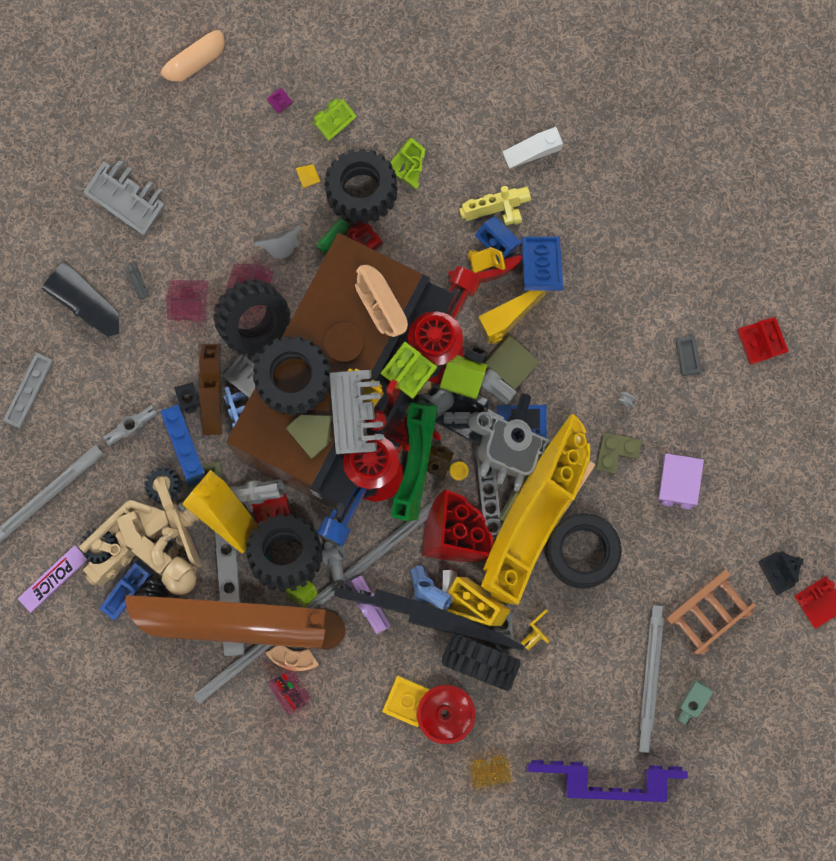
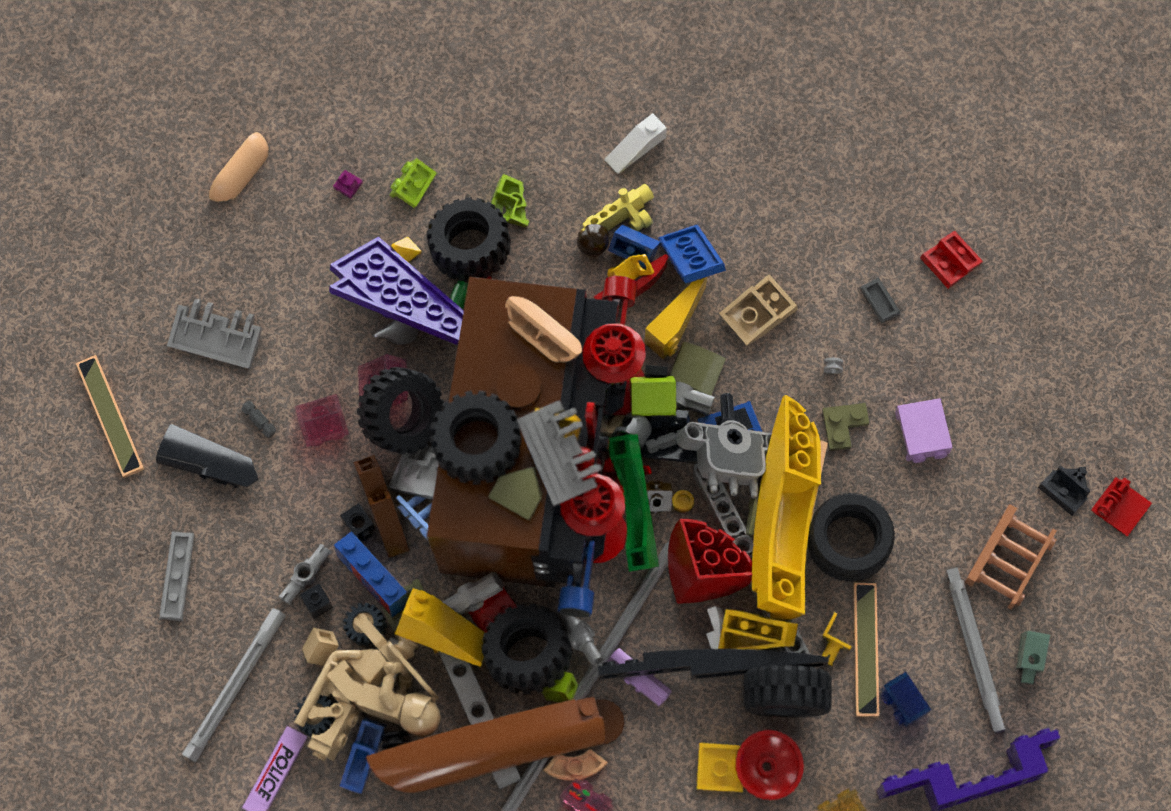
camera: 20 degrees left, 10 degrees down
(17, 236) = (109, 416): none -> olive tile
(122, 489) = (319, 646): none -> tan panel
(131, 451) = (316, 601): none -> black brick
(283, 207) = (391, 286): none -> dark purple wing
(409, 370) = (599, 388): lime slope -> none
(426, 592) = (697, 636): medium blue piece -> none
(466, 221) = (593, 240): none -> dark brown hair
(562, 647) = (866, 650): none -> olive tile
(577, 700) = (905, 700): none -> clear blue brick
(582, 330) = (758, 310): none -> tan slope

